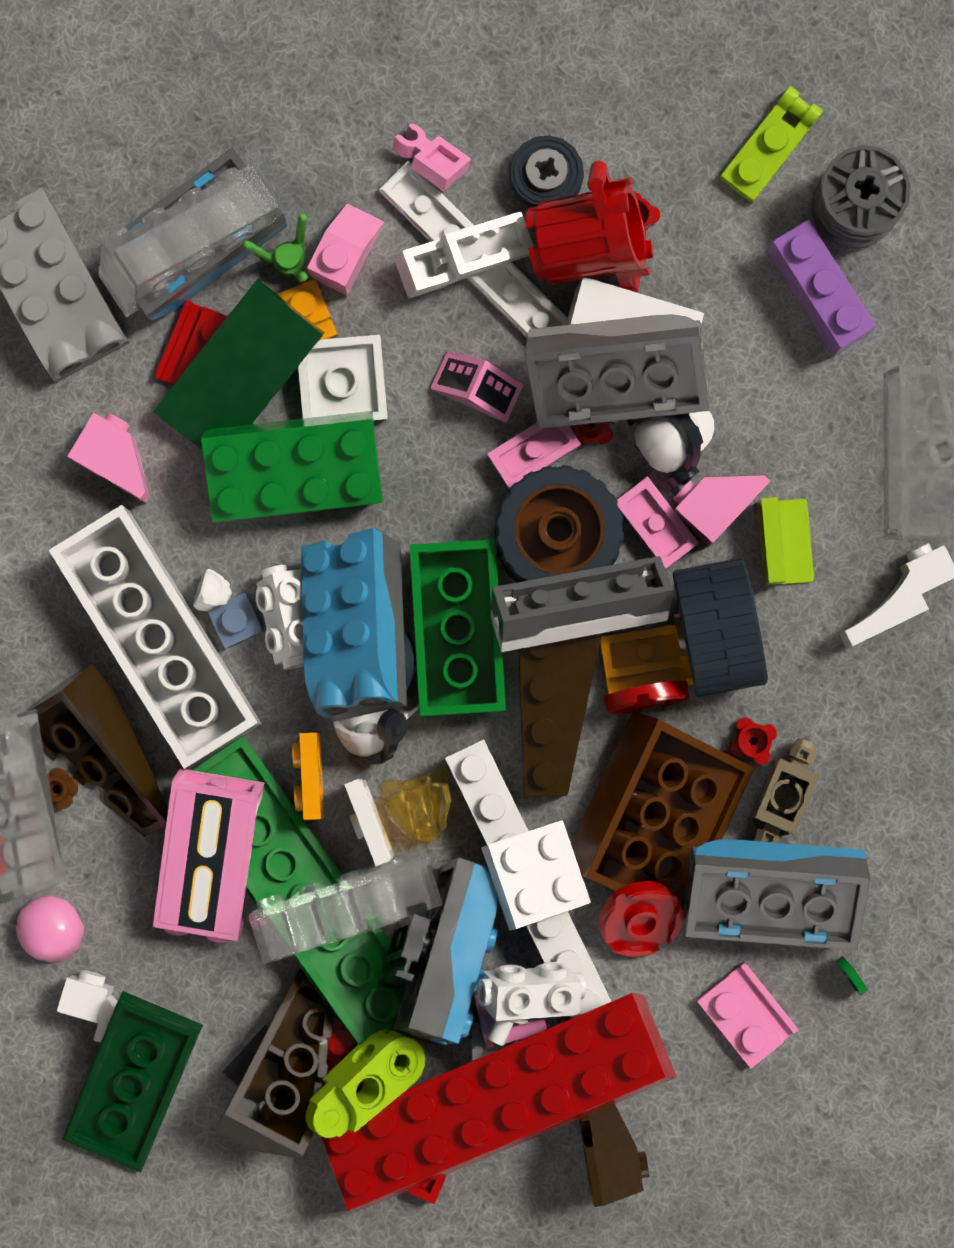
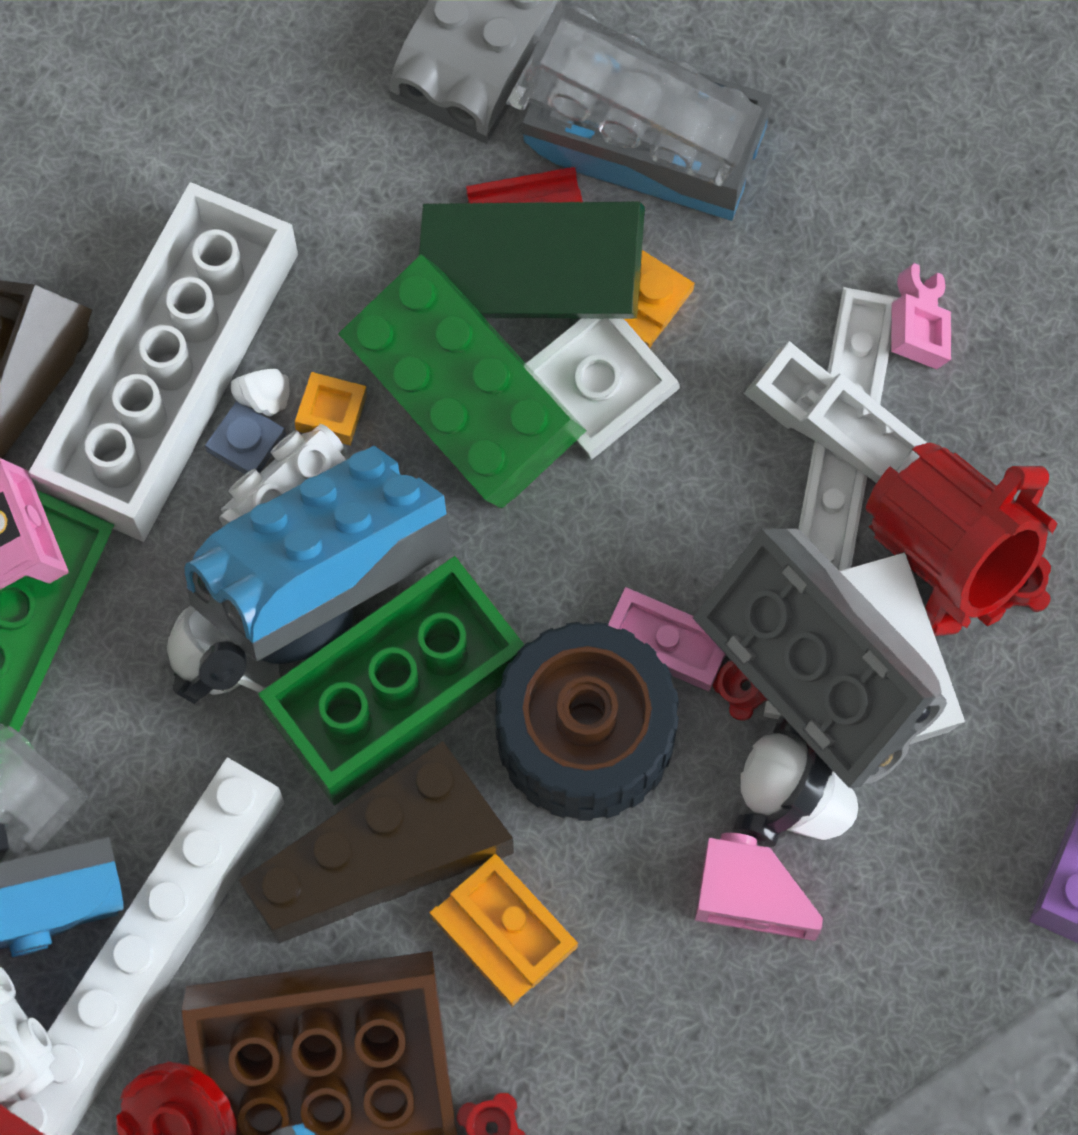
camera: 60 degrees right, 15 degrees down
(111, 454) = (346, 195): bright pink slope -> none
(251, 555) = (333, 404): none -> light orange plate
(287, 256) = (696, 238): bright green plant -> none
(308, 757) = (95, 636): light orange plate -> none
(344, 249) = (748, 290): bright pink slope -> none
(368, 822) = (97, 719): white plate -> none
(419, 804) = (153, 770): clear yellow brick -> none
(477, 385) = (697, 531): slope -> none
(535, 186) = (1001, 423): black wheel -> none
(535, 875) = (146, 948): white plate -> none
(580, 603) = (512, 786): dark grey piece -> none
(646, 696) = (456, 949): red tile -> none
(656, 522) = (678, 835): bright pink plate -> none
(719, 627) = (597, 978): black wheel -> none
(785, 541) = (763, 1005): lime panel -> none

